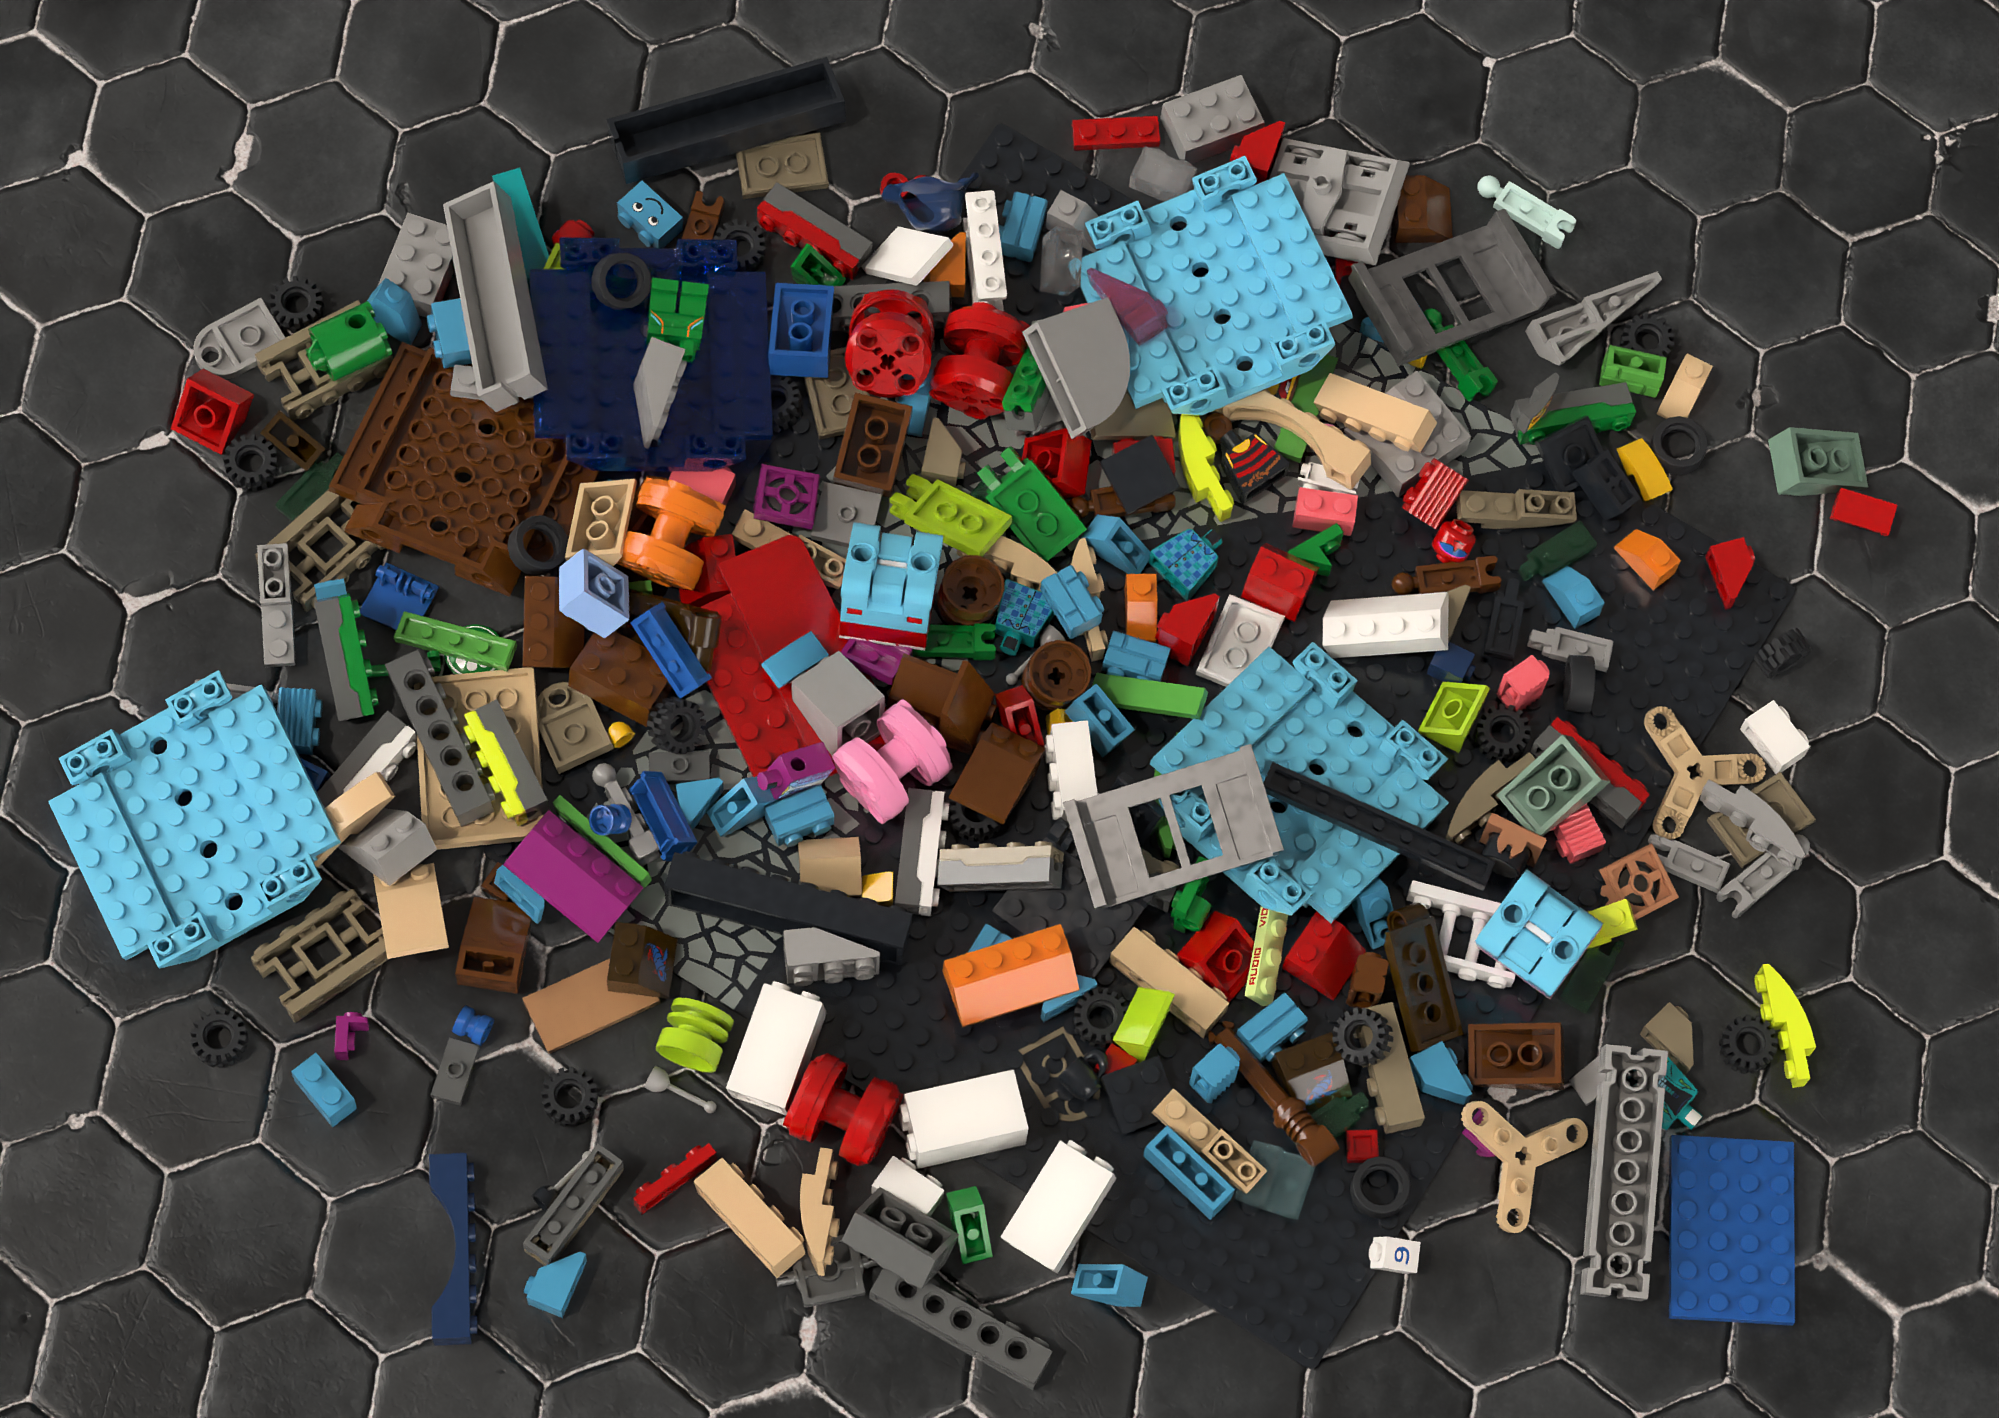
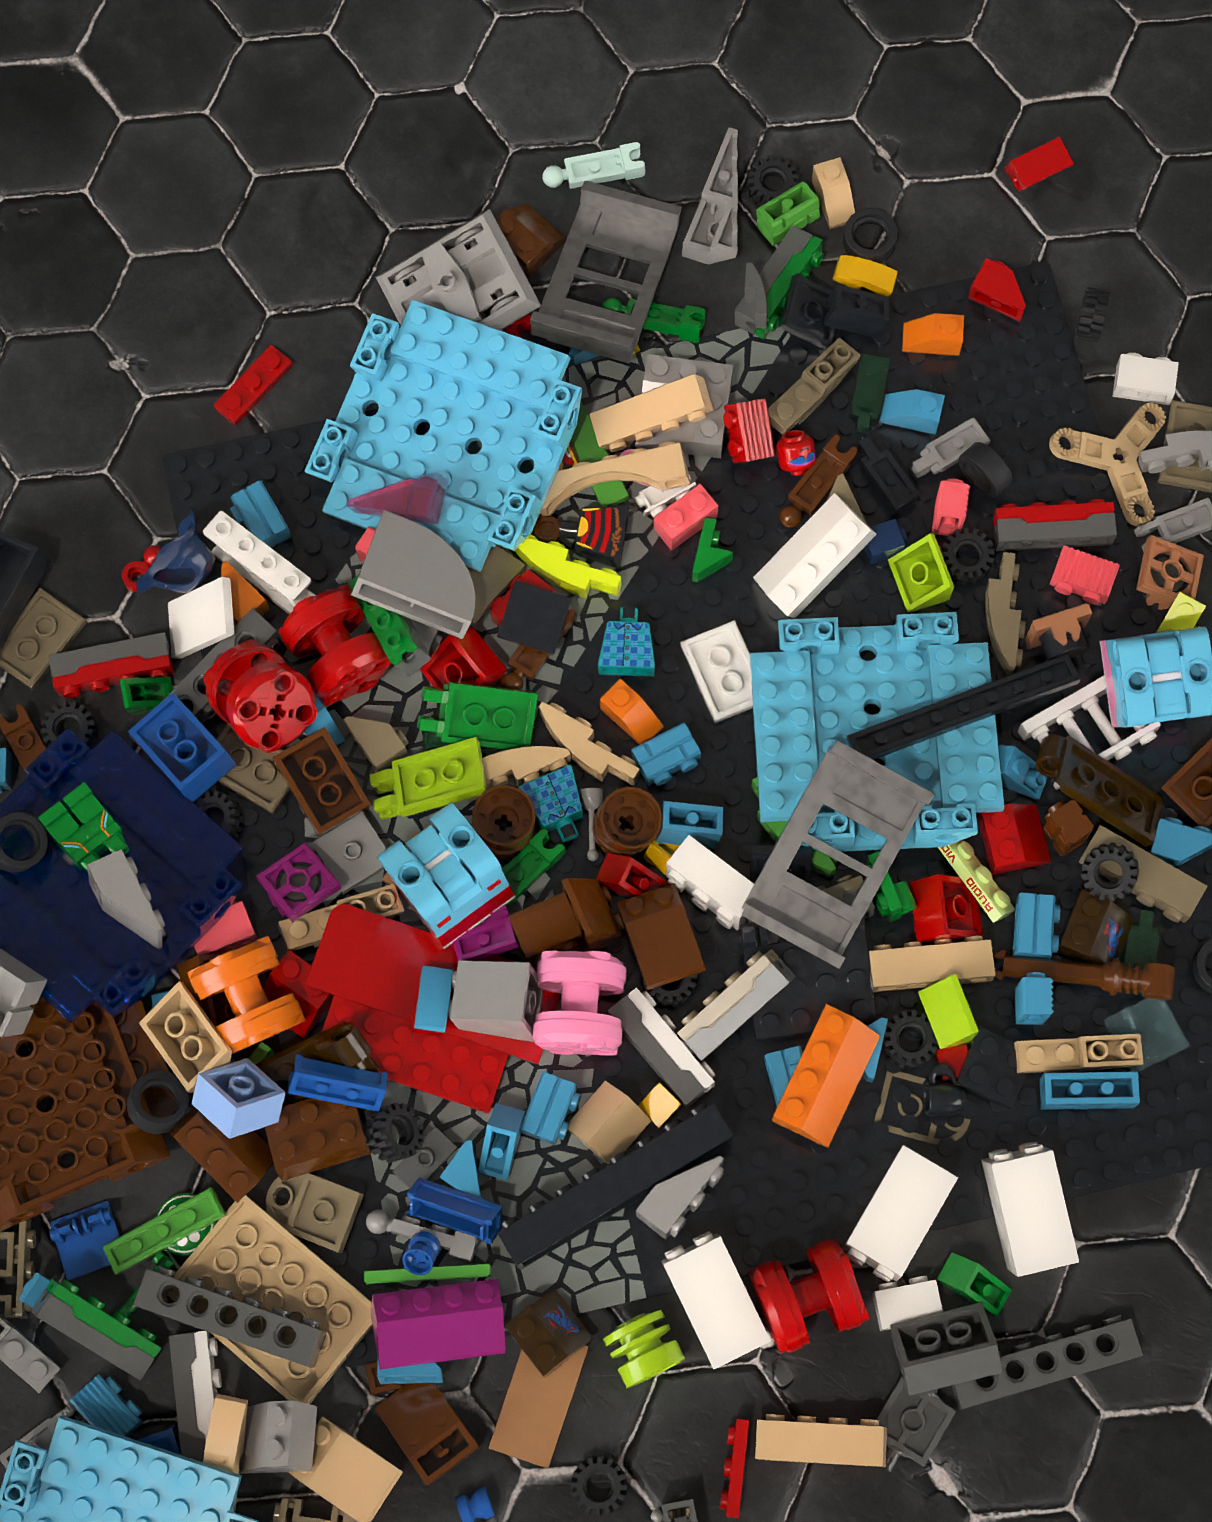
camera: 35 degrees left, 5 degrees up
(507, 763) = (301, 1287): piece -> none
(620, 734) = (356, 1178): yellow hinge -> none
(659, 1081) = (650, 1407): light grey hinge -> none
(797, 771) = (515, 1088): magenta torso -> none
(817, 1213) = (871, 1396): tan slope -> none
(1061, 260) = (315, 515): clear brick -> none
(1071, 213) = (289, 480): light grey slope -> none
(1071, 601) = (584, 757): dark azure brick -> none
(1110, 1284) = (1114, 1227): dark azure slope -> none
(1117, 544) = (566, 683): dark azure slope -> none
(1153, 696) = (708, 770): bright green tile -> none
(1161, 175) = (320, 384): clear brick -> none
(1186, 627) = (681, 697): red slope -> none
(1211, 119) = (314, 311): light grey brick -> none
(1260, 149) = (374, 299): red slope -> none
(1279, 581) = (709, 598): red slope -> none
(1361, 1145) = (1178, 948): red tile -> none
(1553, 786) = (1049, 561): sand green slope -> none
(1817, 461) = (972, 159): sand green slope -> none

